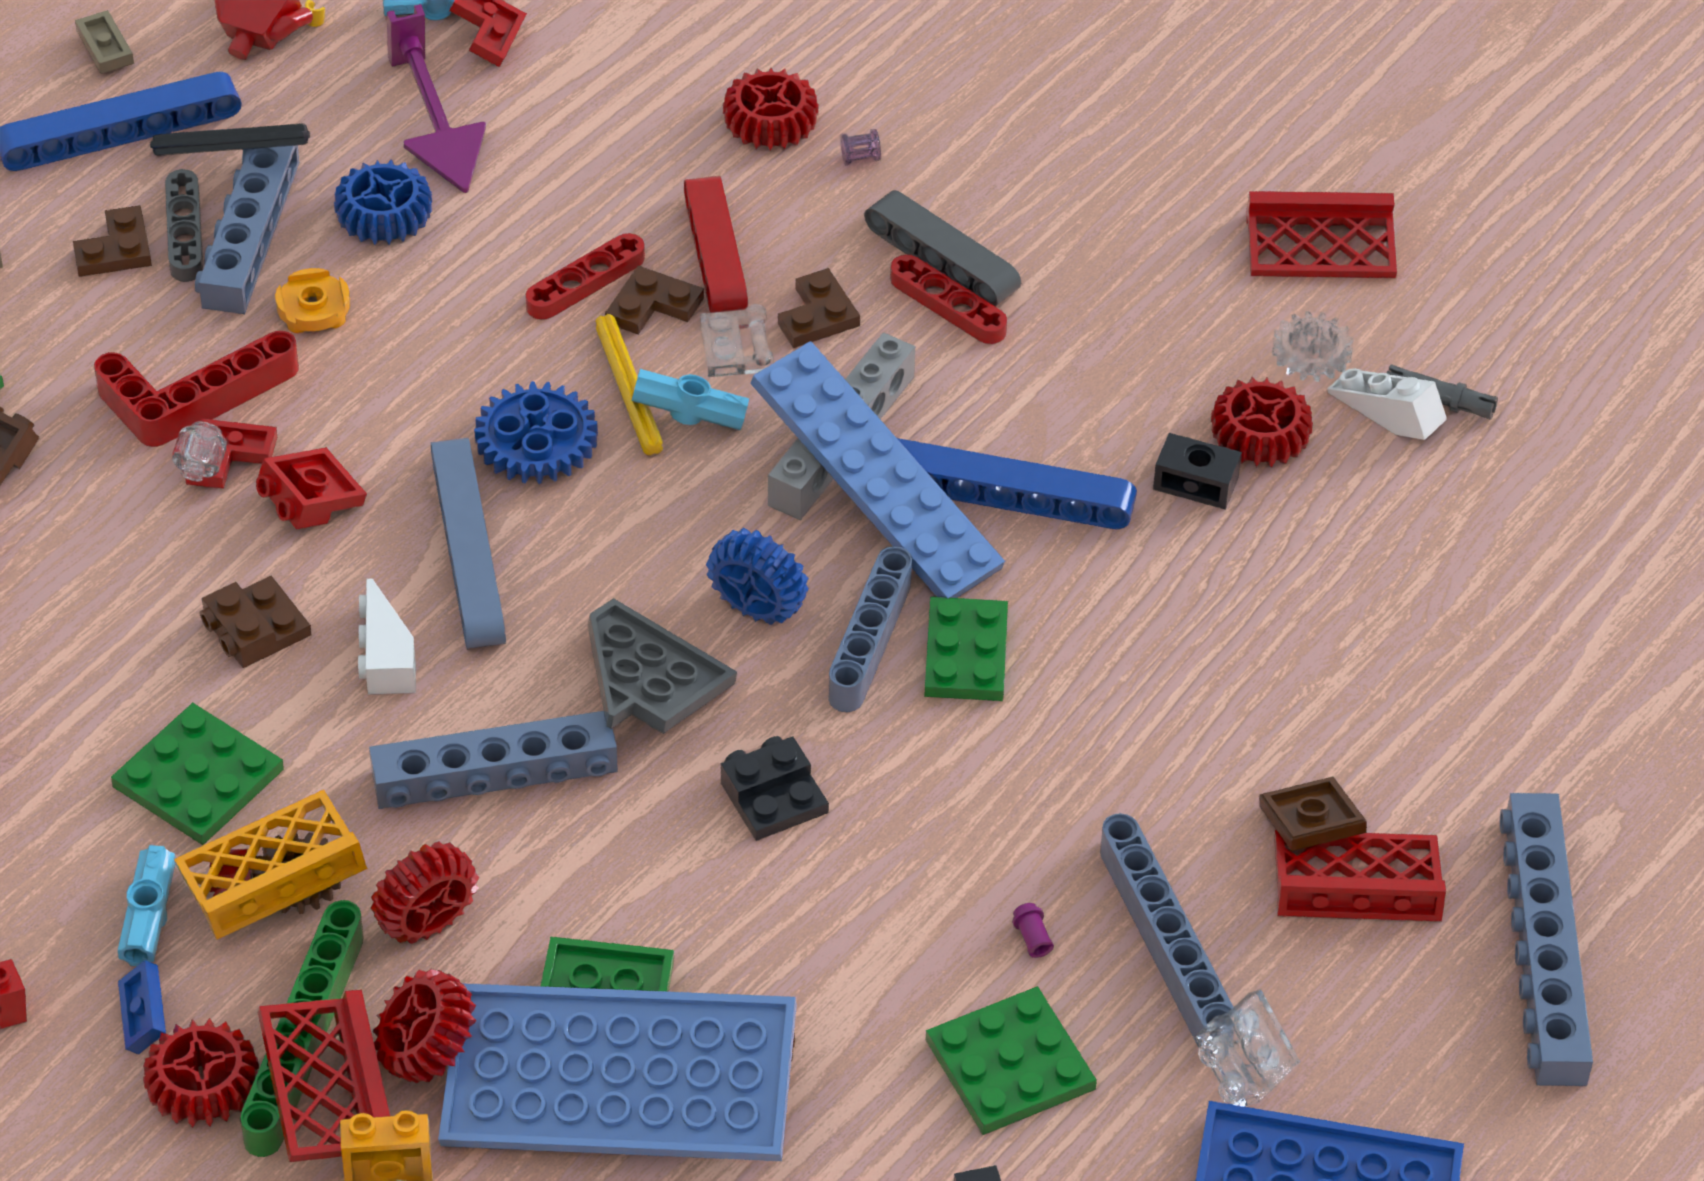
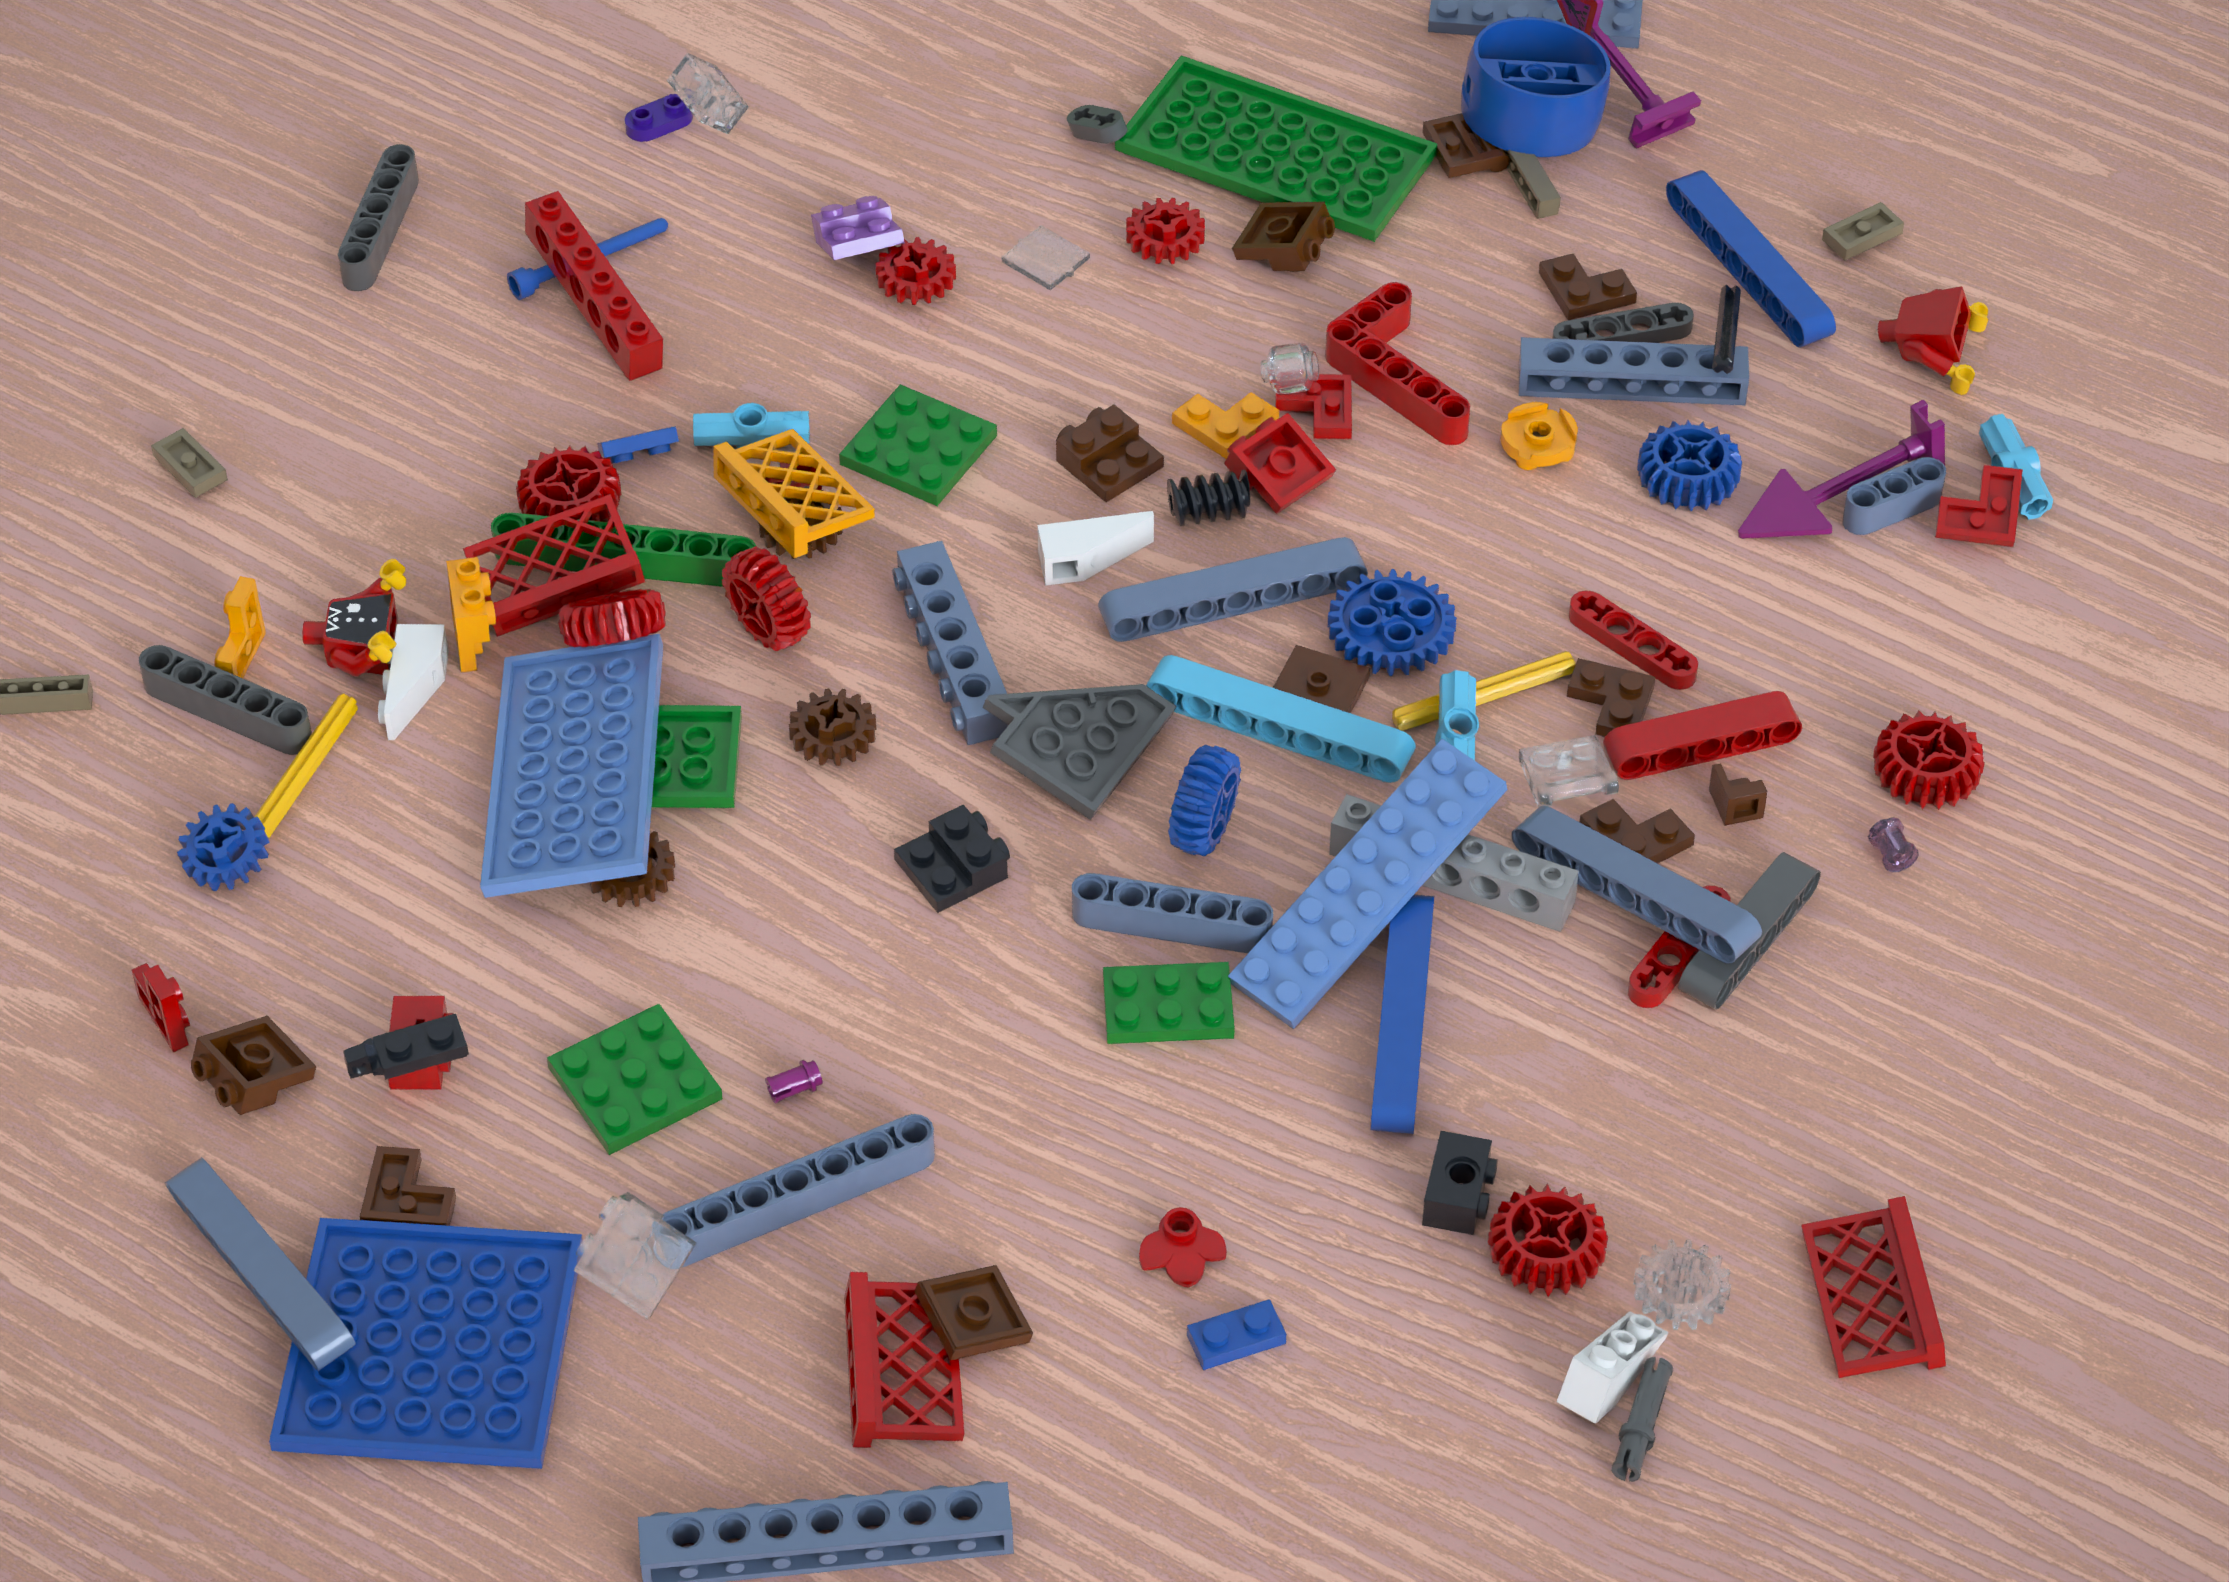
camera: 85 degrees right, 0 degrees up
(236, 530) = (1221, 428): none -> light orange plate
(345, 541) = (1209, 496): none -> black piece
(454, 77) = (1894, 496): none -> sand blue beam
(590, 865) = (832, 727): none -> reddish brown gear
(600, 499) = (1323, 678): none -> reddish brown plate
(640, 526) = (1283, 719): none -> medium azure beam
(788, 240) = (1738, 798): none -> reddish brown panel
(907, 293) = (1639, 884): none -> sand blue beam
(1245, 666) = (1183, 1252): none -> red plate
(1338, 641) = (1236, 1334): none -> blue plate

